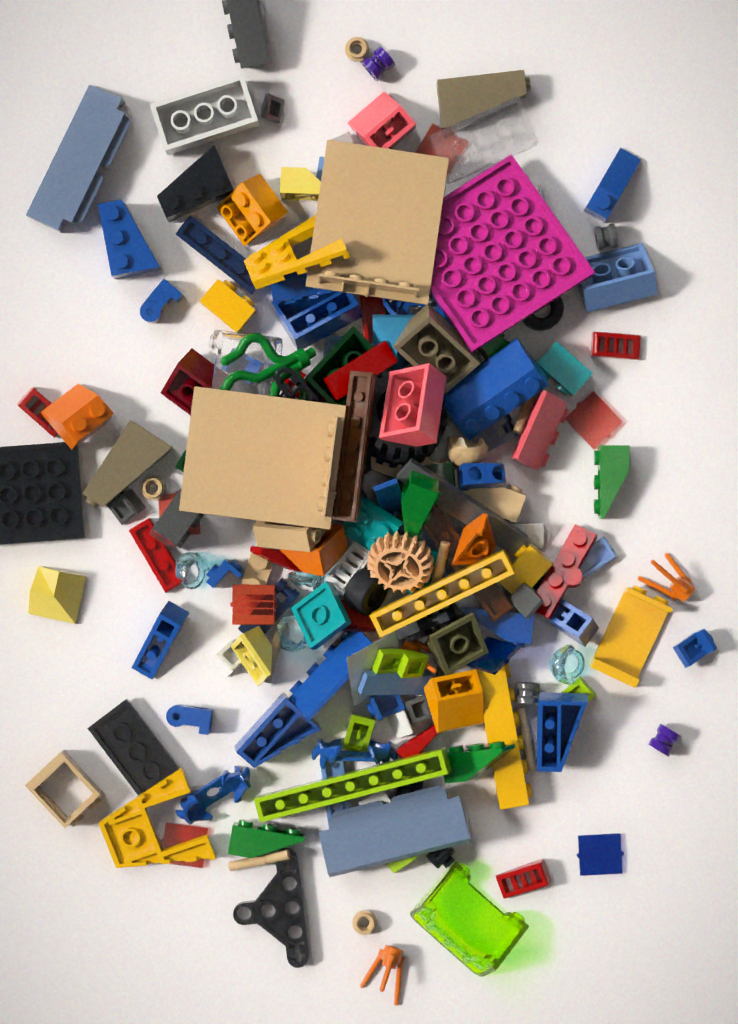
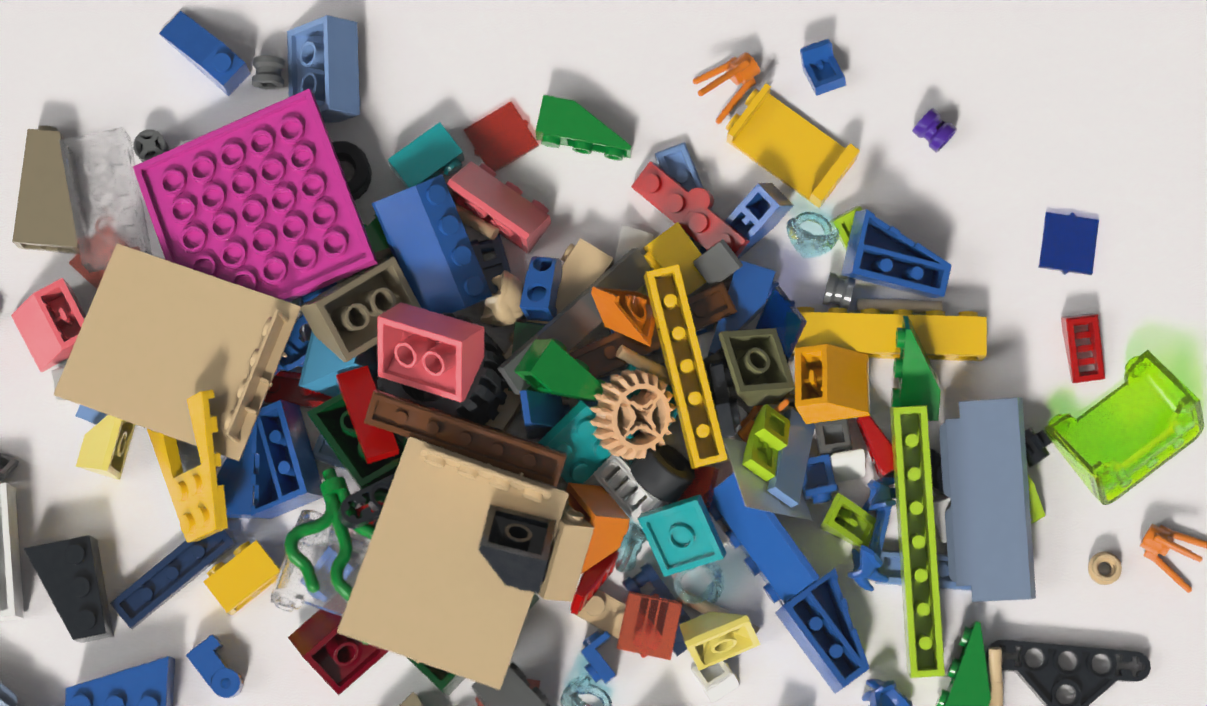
camera: 80 degrees left, 10 degrees down
(252, 209) = (122, 519): light orange slope -> none
(281, 501) = (517, 546): none -> black slope
(531, 158) = (146, 142): none -> dark grey wheel
(595, 345) = (406, 114): red slope -> none

